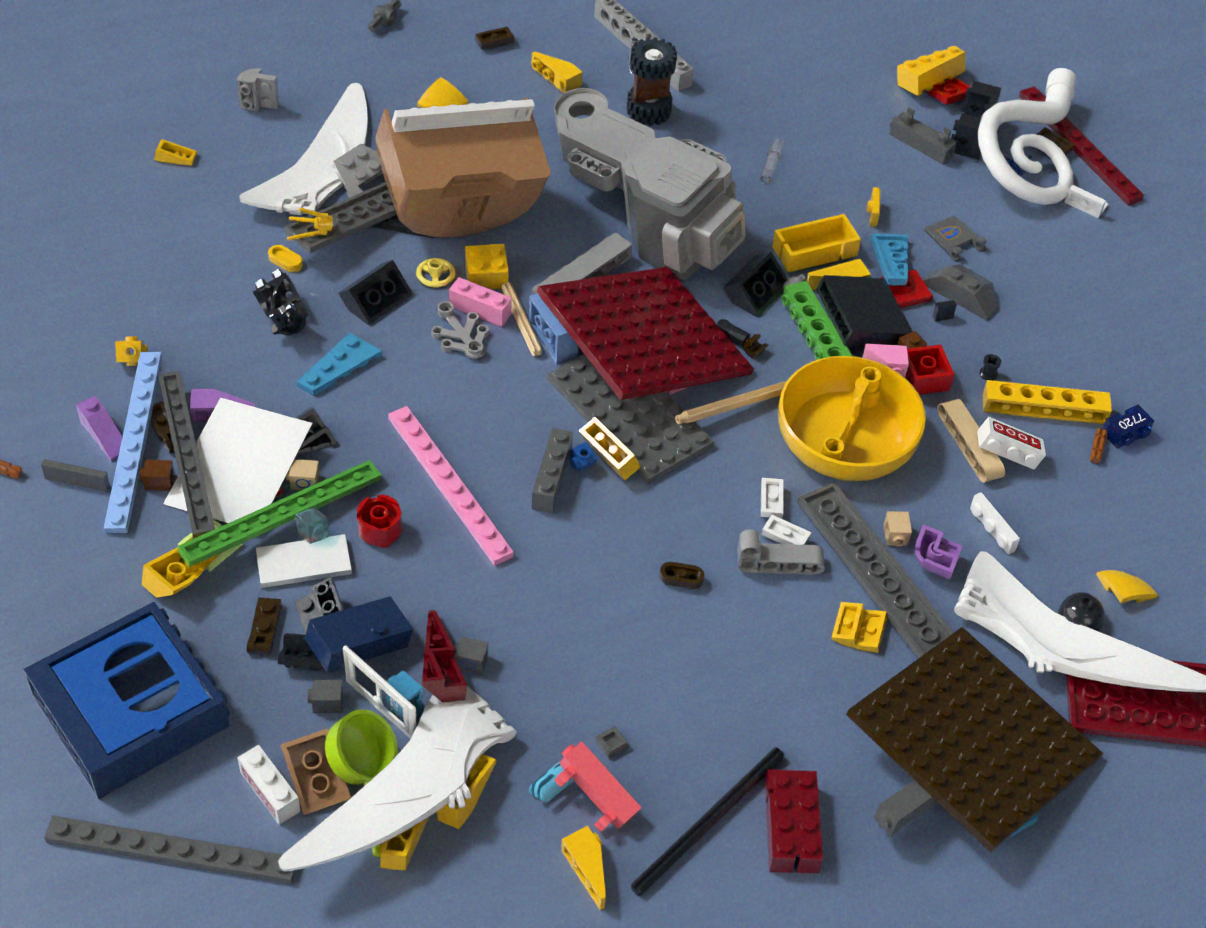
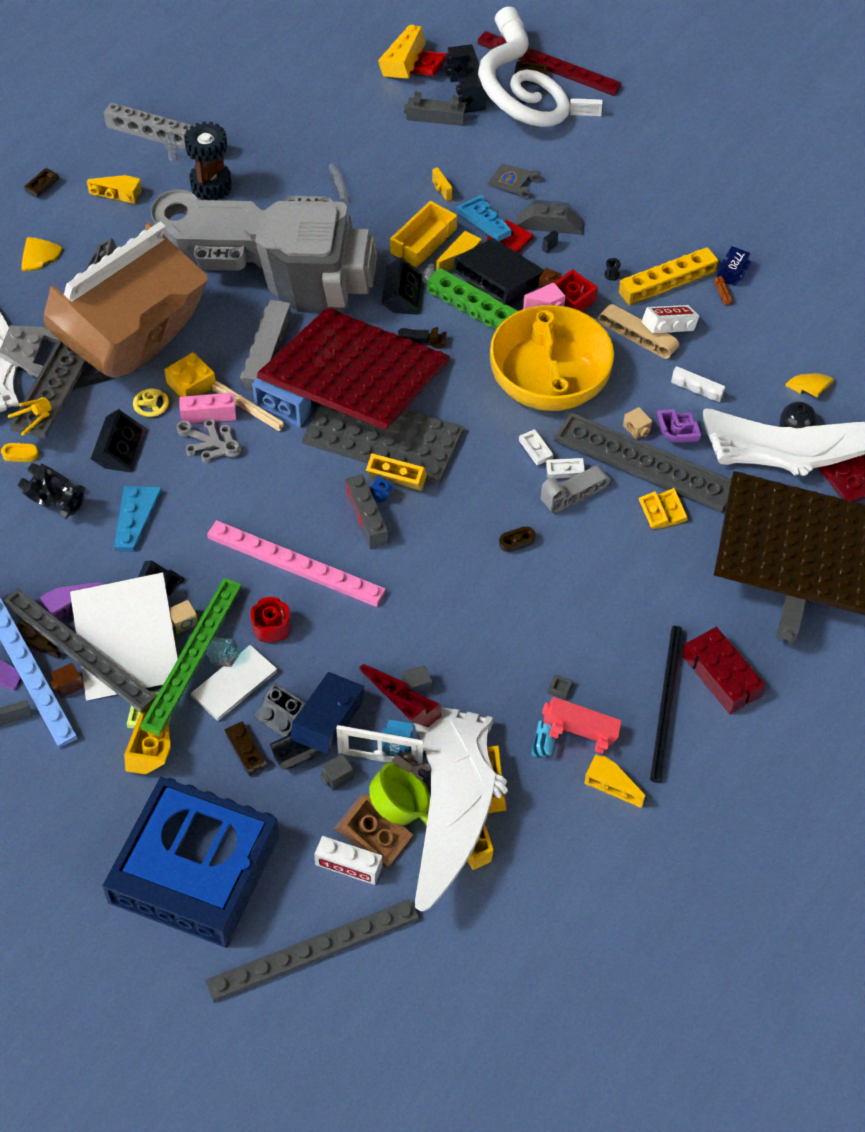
camera: 30 degrees left, 5 degrees up
(390, 722) = (409, 764): none -> dark brown plate
(730, 403) = (459, 387): tan piece -> none

